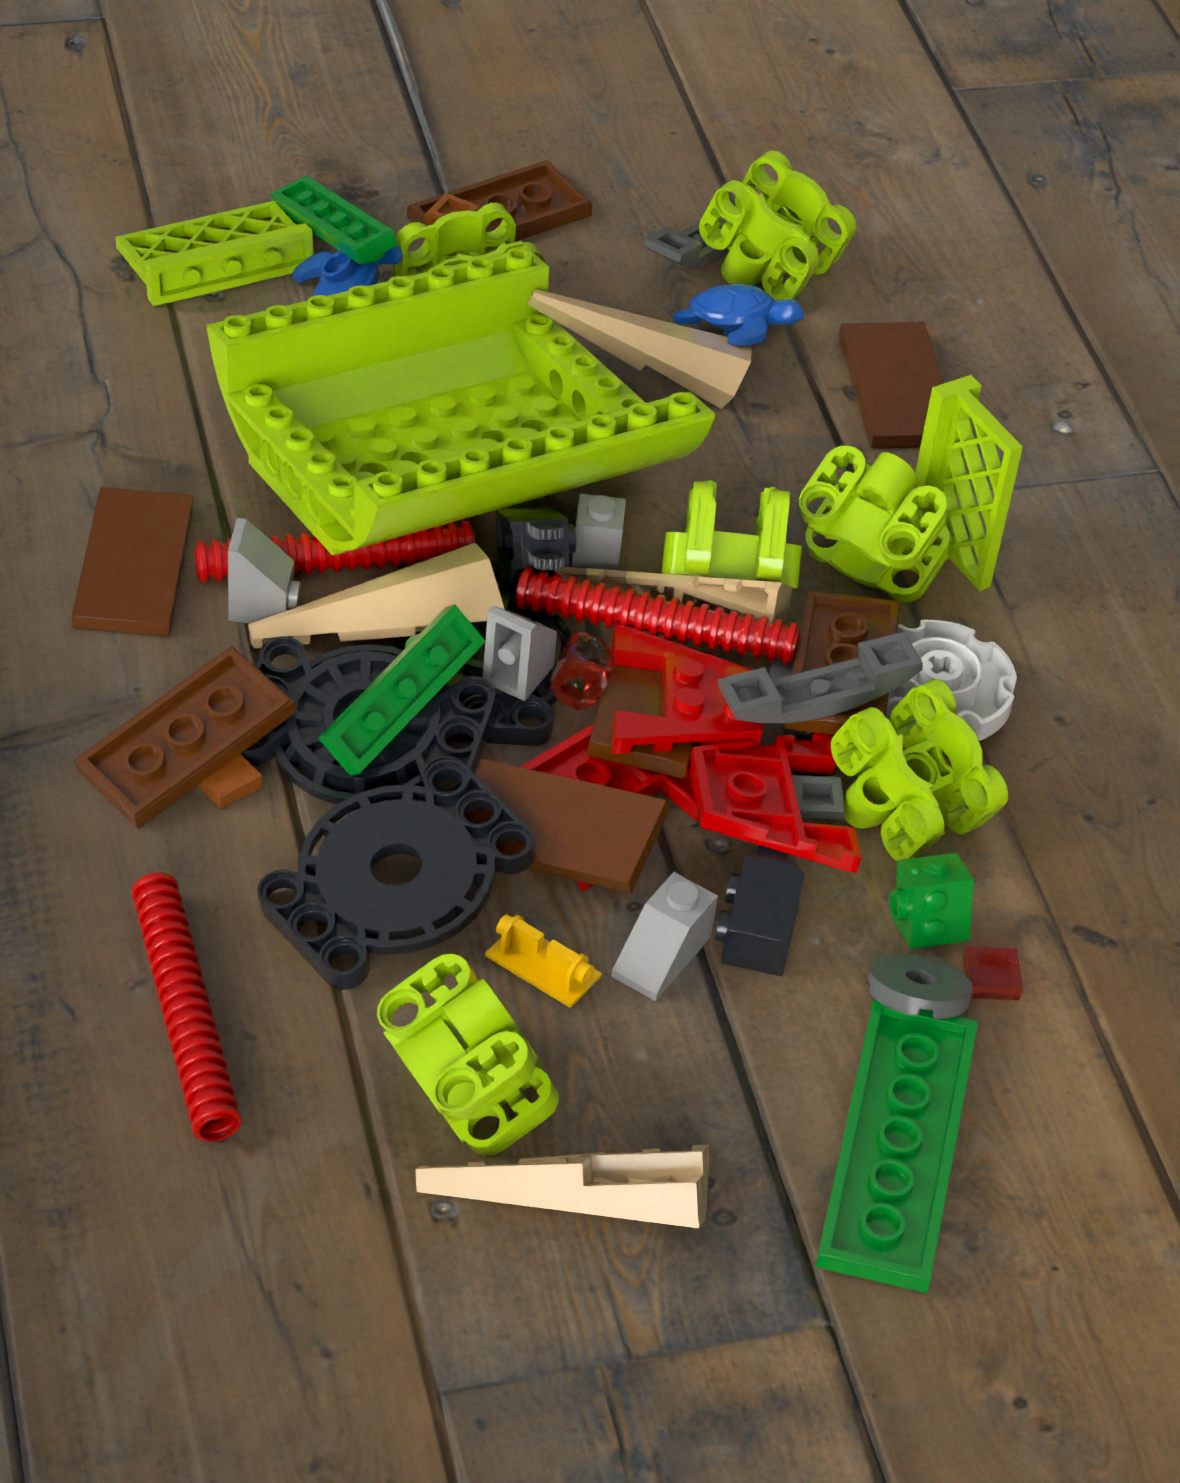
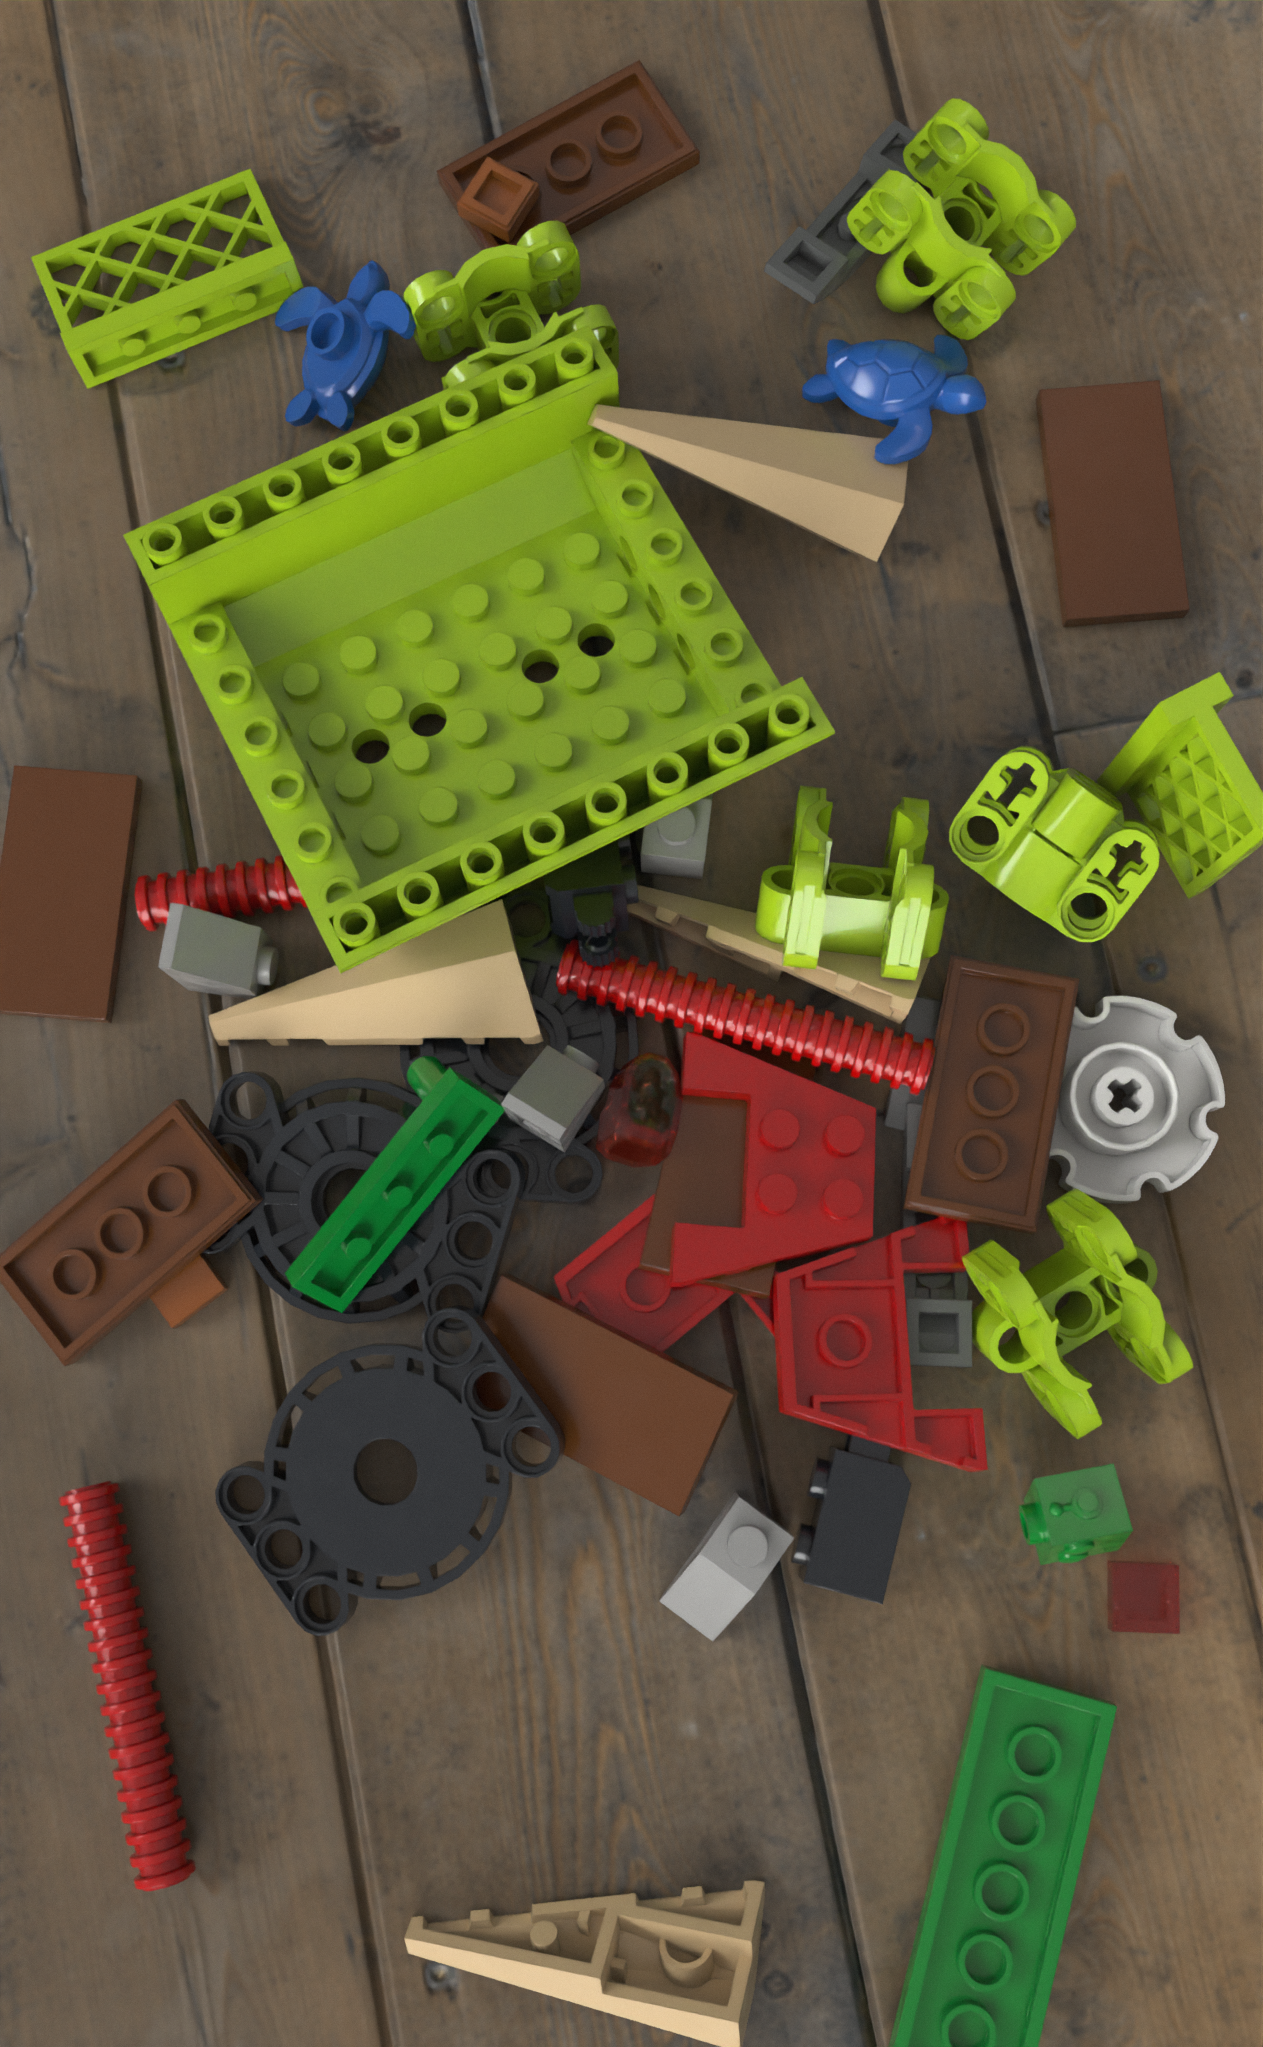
camera: 10 degrees right, 35 degrees up
(335, 220) = (323, 241): green plate -> none
(468, 1054) = (465, 1823): lime piece -> none
(541, 962) = (573, 1597): yellow hinge -> none
(823, 691) = (956, 1174): dark grey slope -> none
(918, 983) = (1072, 1622): dark grey tile -> none

